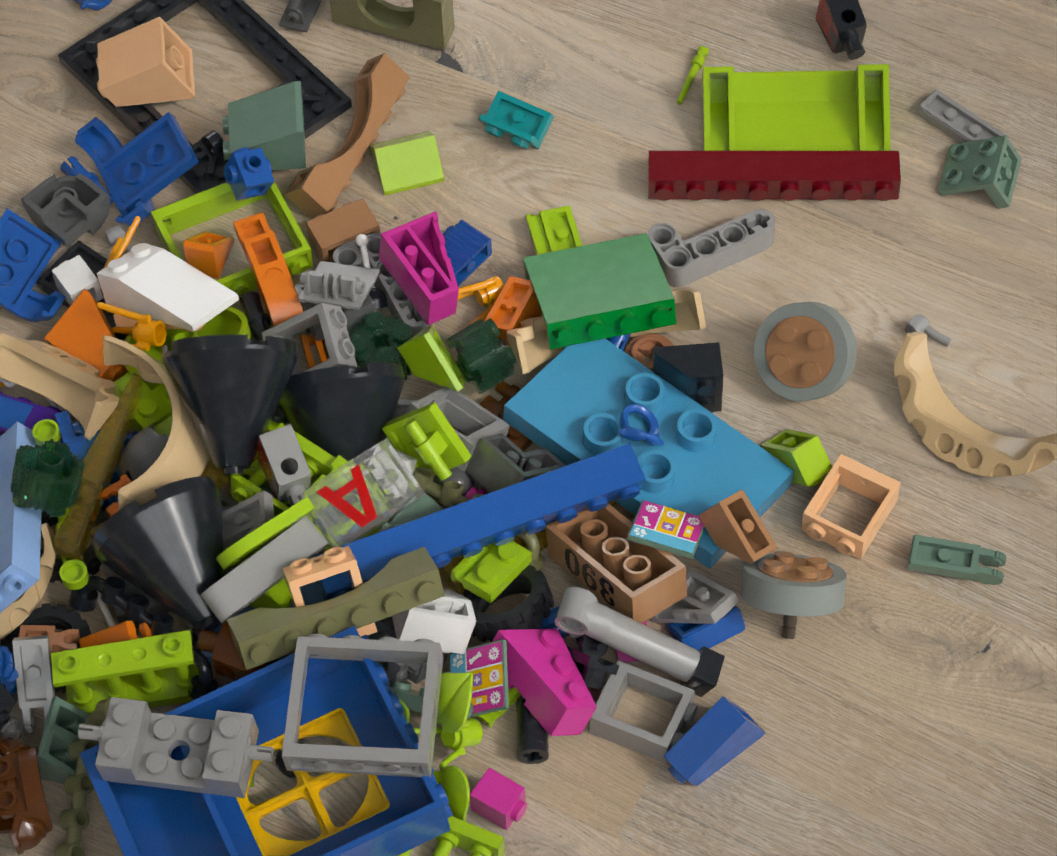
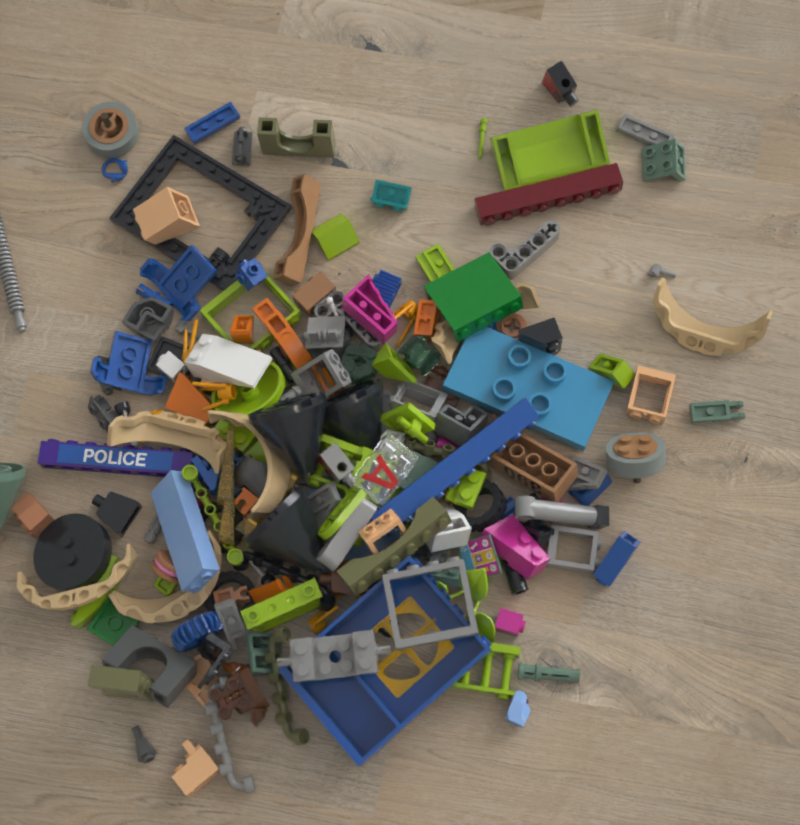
camera: 10 degrees left, 15 degrees up
(46, 477) = (204, 507): clear green brick -> none
(269, 122) = (251, 240): sand green slope -> none
(634, 434) = (522, 387): blue piece -> none
(666, 529) = (558, 440): piece -> none
(738, 528) = (597, 430): medium nougat slope -> none
(805, 351) = (601, 307): wheel -> none

